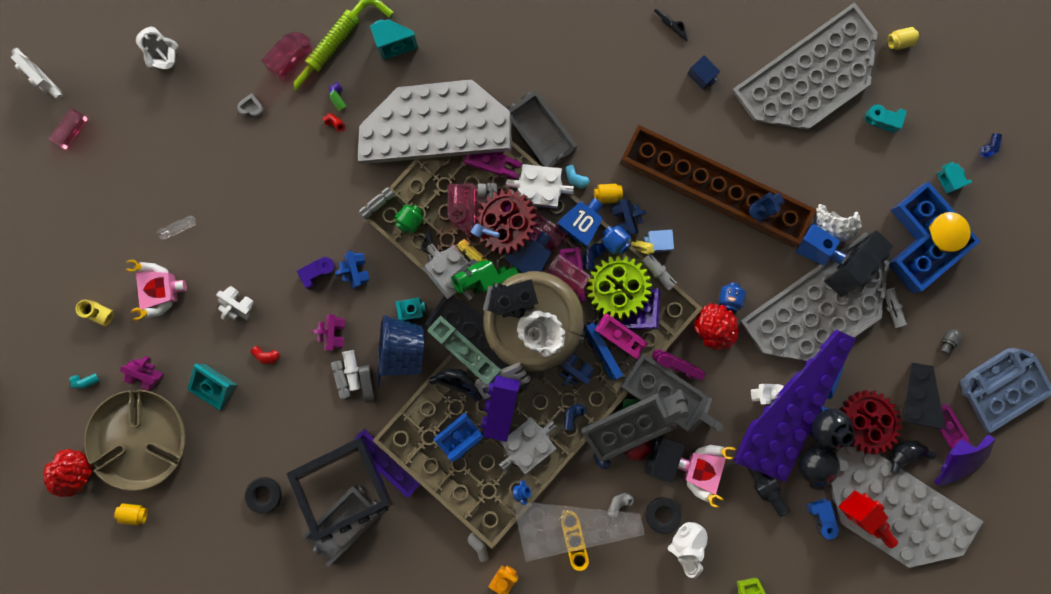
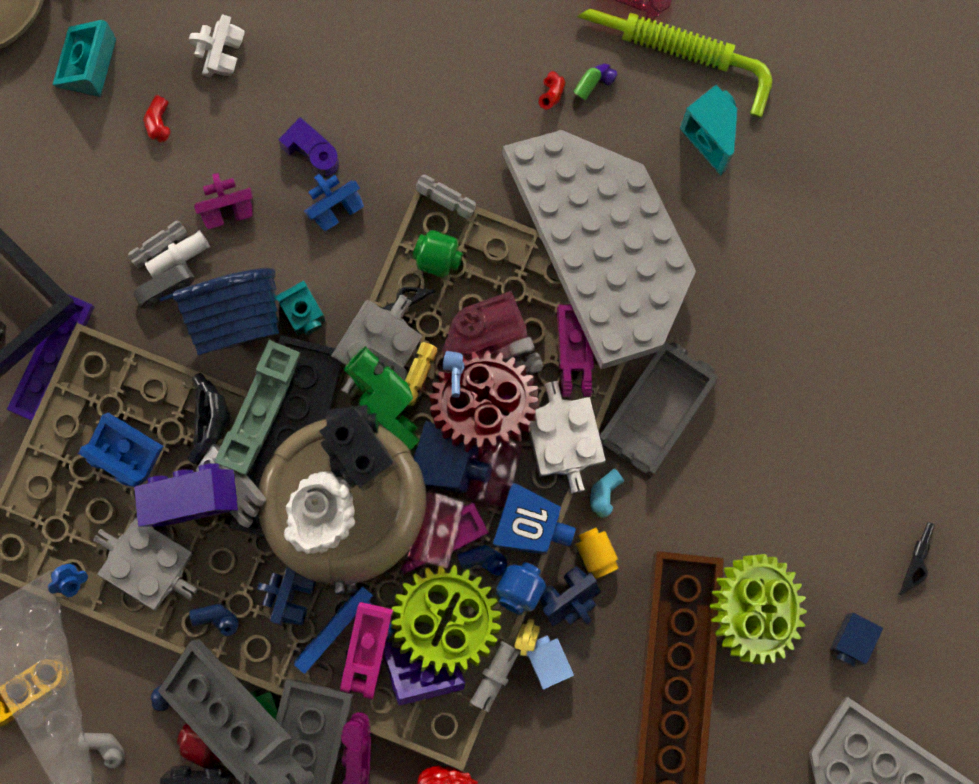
camera: 75 degrees right, 5 degrees down
(671, 117) = (758, 609): none -> lime gear

